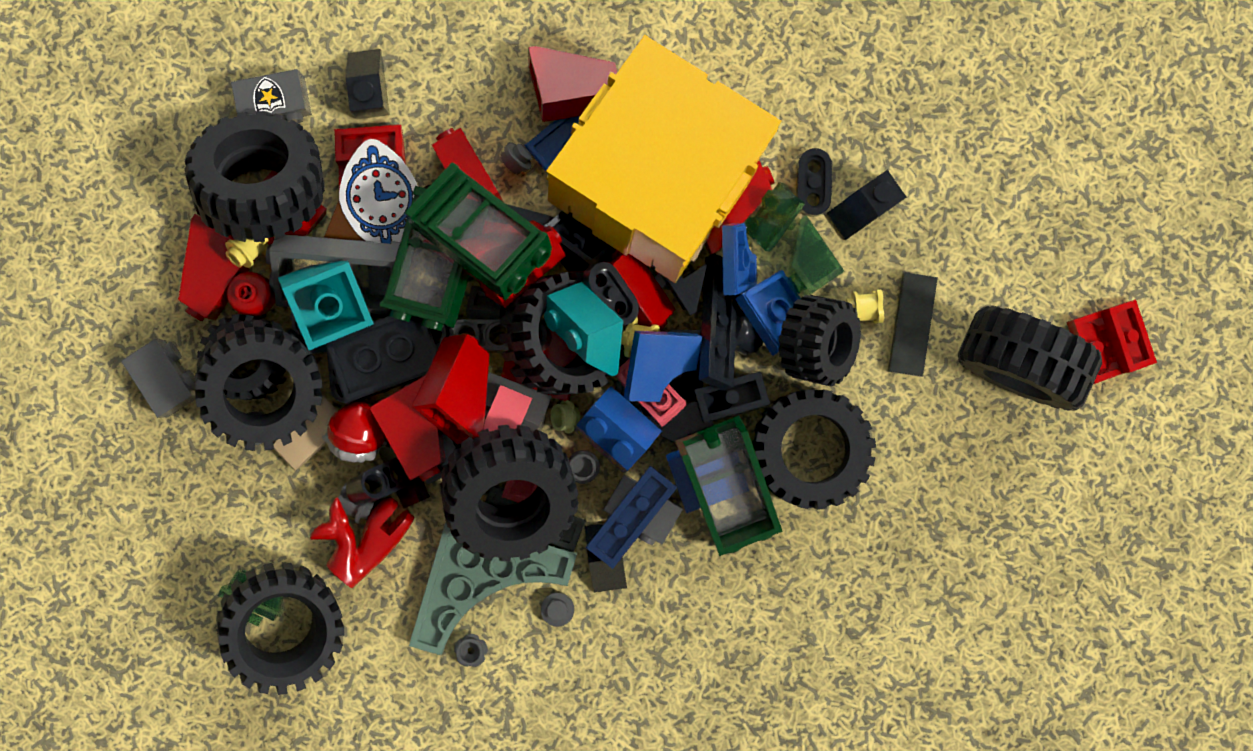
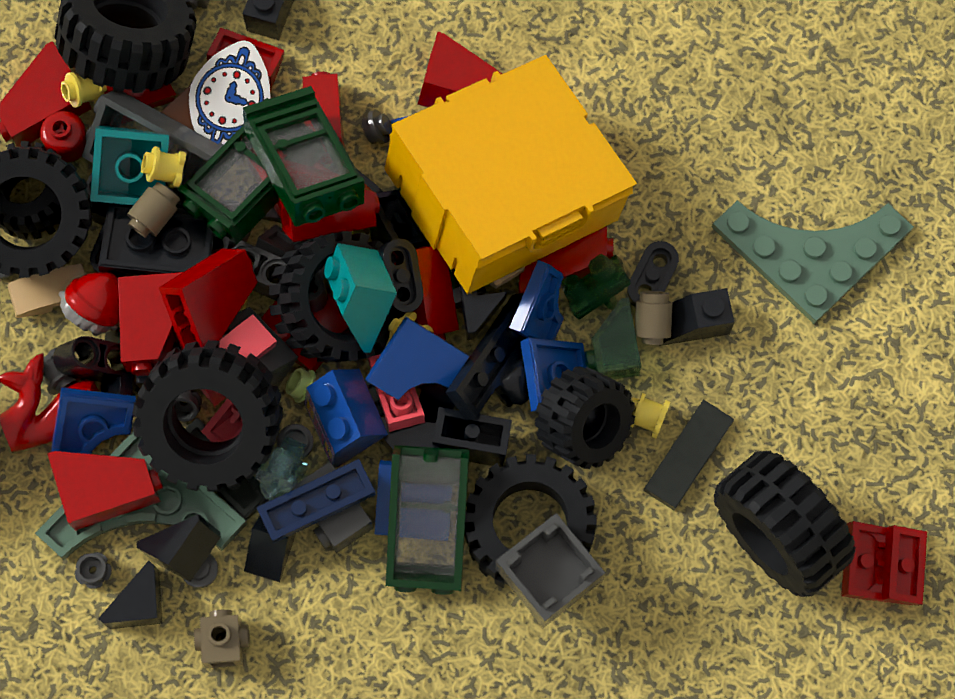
camera: 25 degrees right, 15 degrees down
(359, 293) = (163, 166): none -> light yellow brick
(368, 334) = (153, 210): none -> dark tan brick
(403, 534) = (89, 418): none -> blue tile
(444, 586) = (102, 486): none -> red slope
(523, 663) = (137, 603): none -> black slope
(537, 605) = (182, 546): none -> black slope
(591, 500) = (282, 469): none -> clear light blue hips
(607, 673) = (225, 652): none -> dark tan brick
(835, 222) = (653, 317): none -> dark tan brick
(856, 490) = (549, 570): none -> dark grey container
(942, 110) = (808, 265): none -> sand green plate

